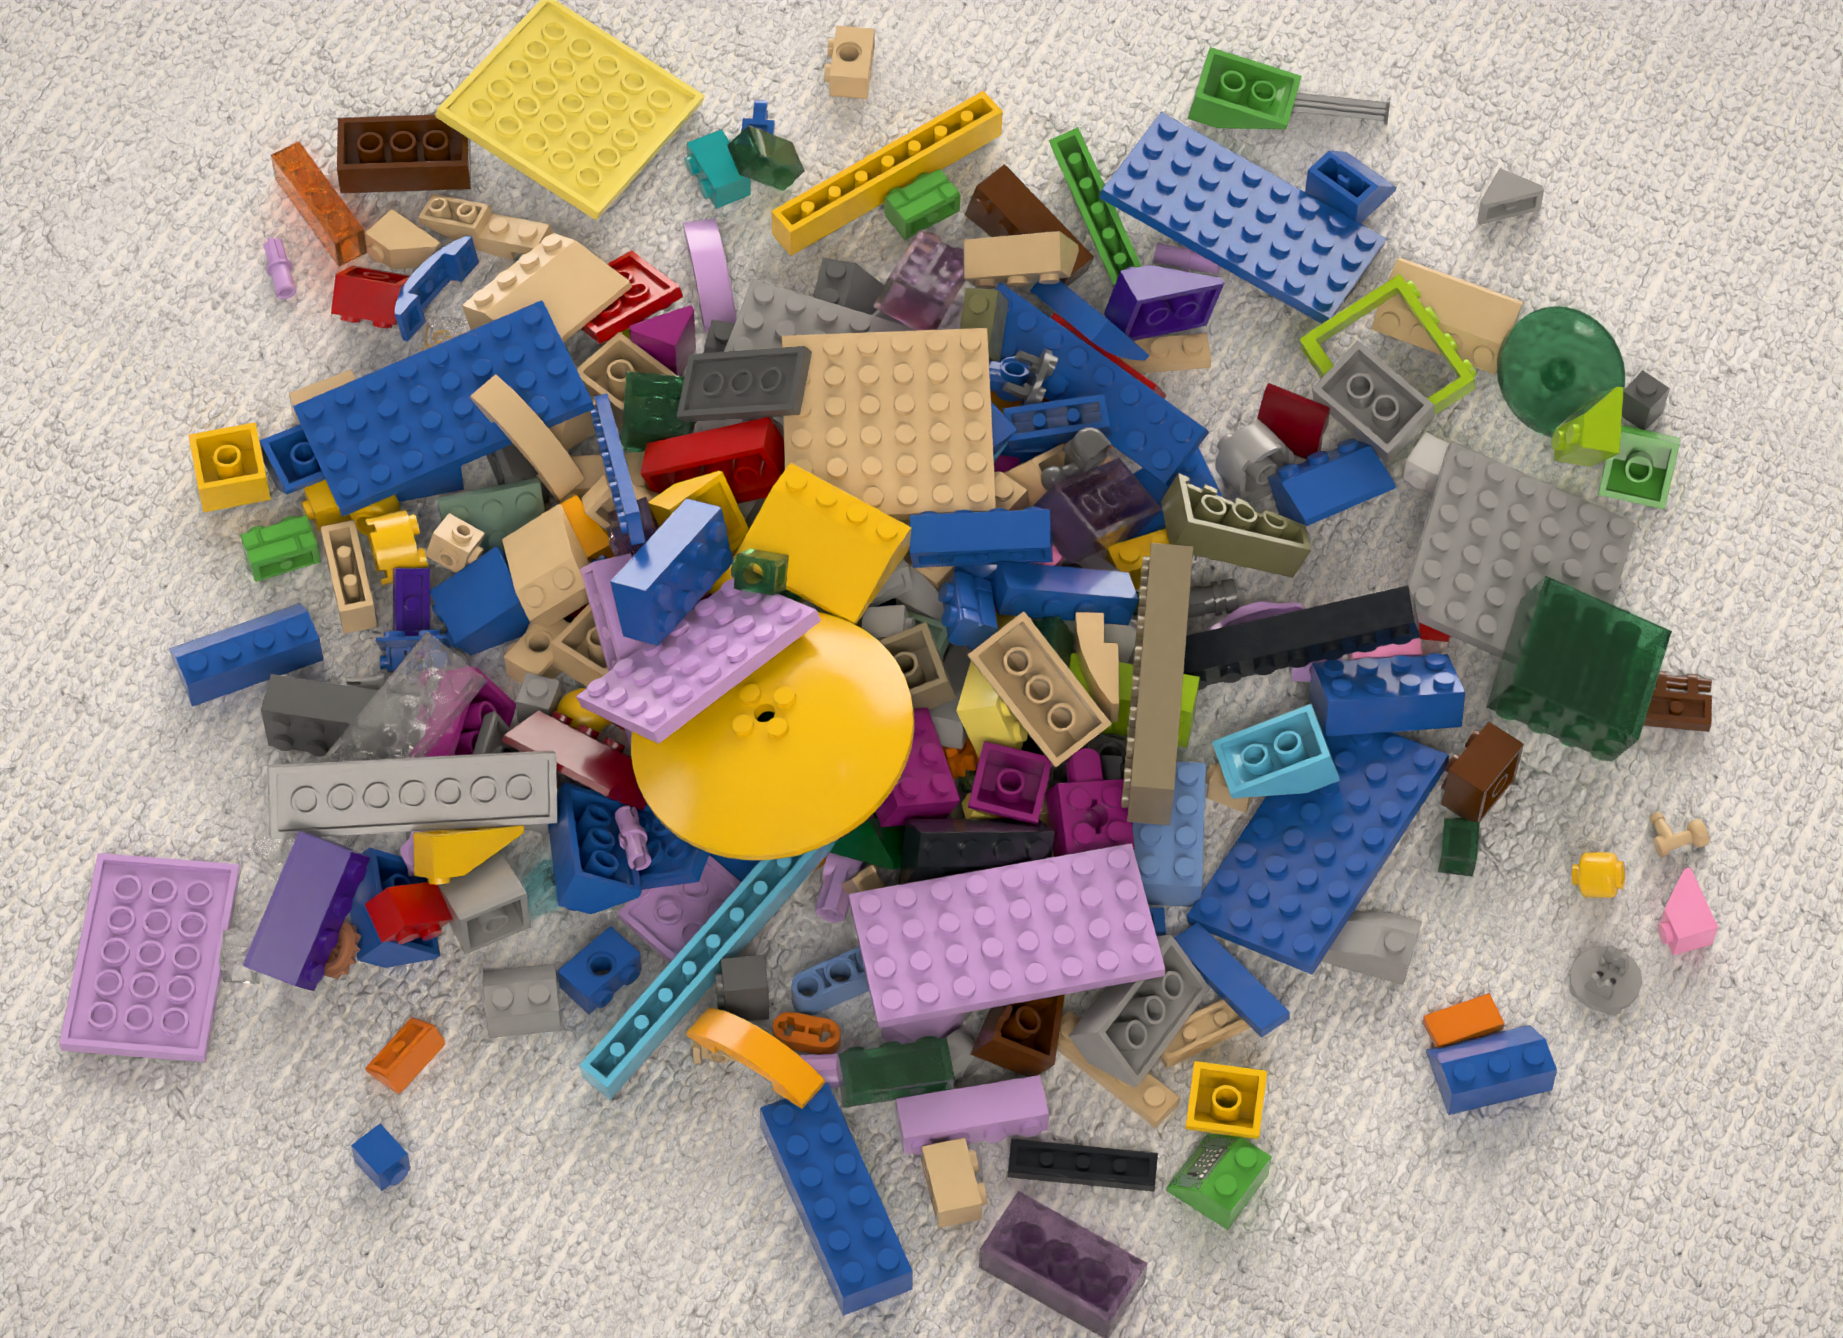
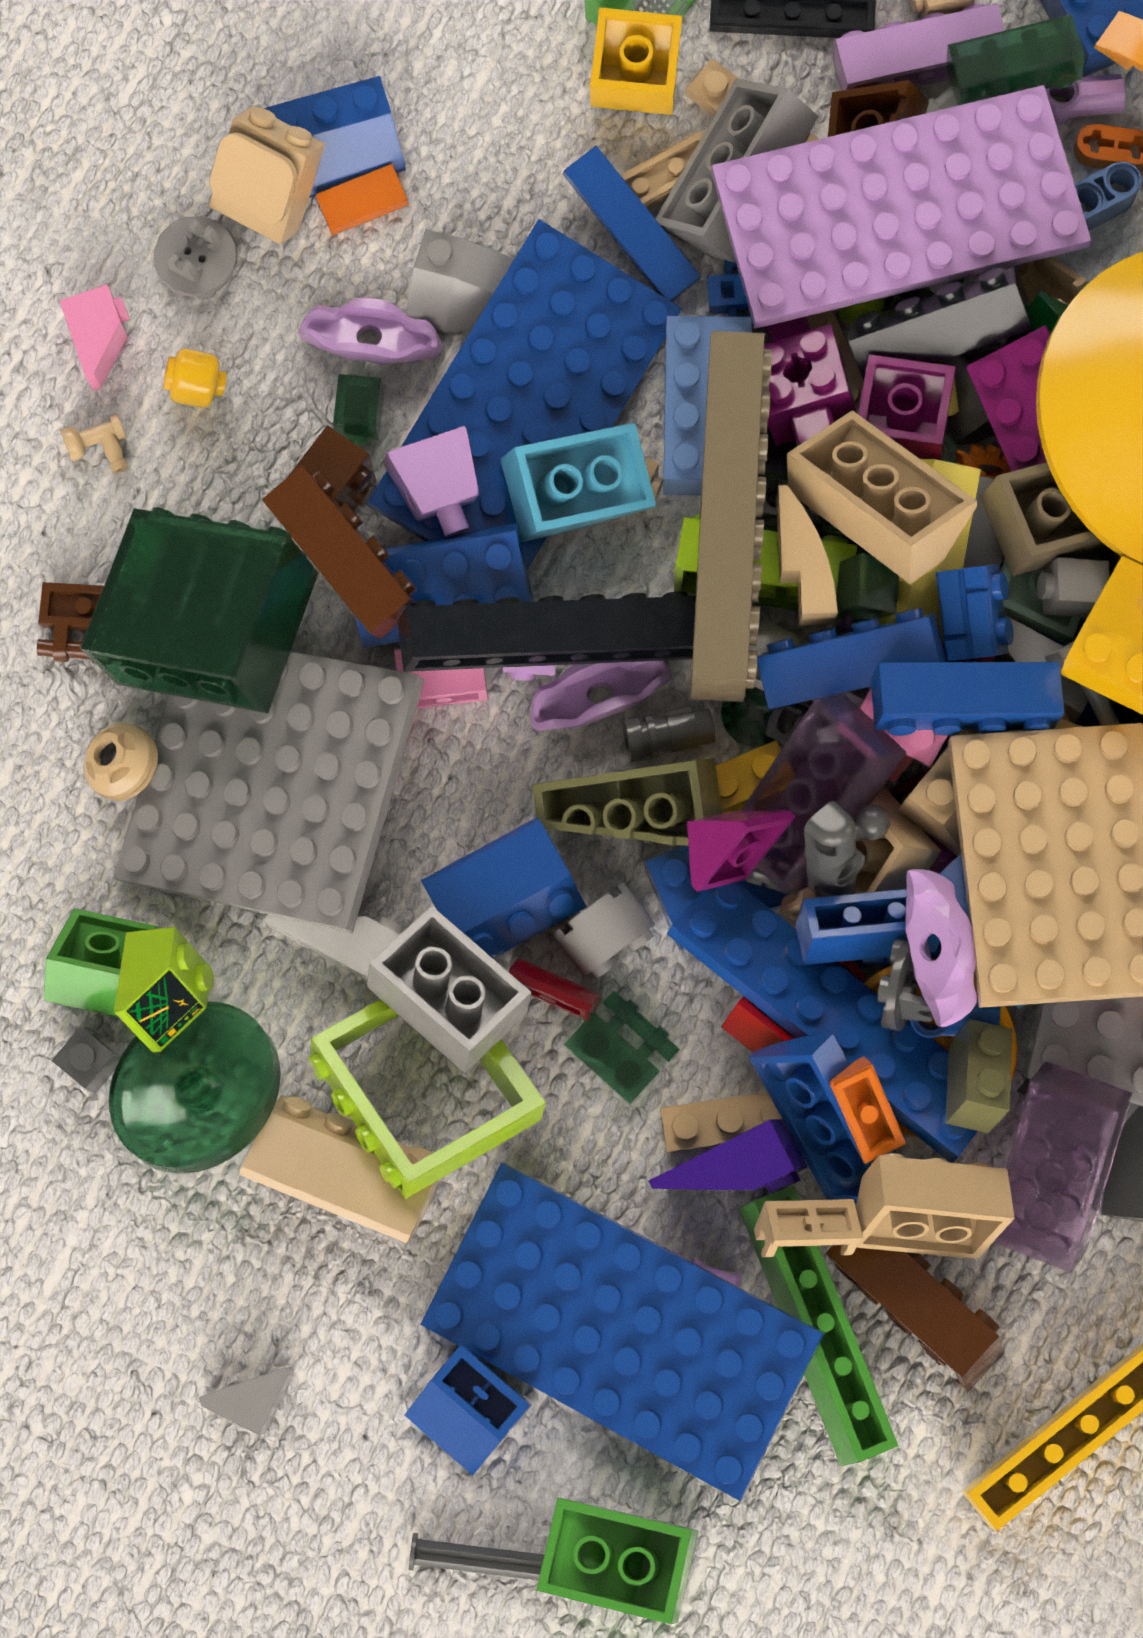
camera: 175 degrees left, 20 degrees up
(921, 203) = (1068, 1352): bright green brick -> none
(1017, 390) = (949, 979): none -> lavender piece
(1065, 305) = (866, 1110): none -> orange slope
(1109, 245) = (808, 1225): none -> tan hinge
(1158, 475) = (731, 845): none -> magenta slope
(1239, 387) = (612, 1057): none -> clear green plate
(1394, 757) = (436, 478): none -> lavender torso
(1423, 899) = (339, 327): none -> lavender piece
(1468, 683) = (340, 550): none -> reddish brown brick
(1548, 1010) = (265, 173): none -> tan brick
(1625, 593) = (131, 767): none -> tan piece

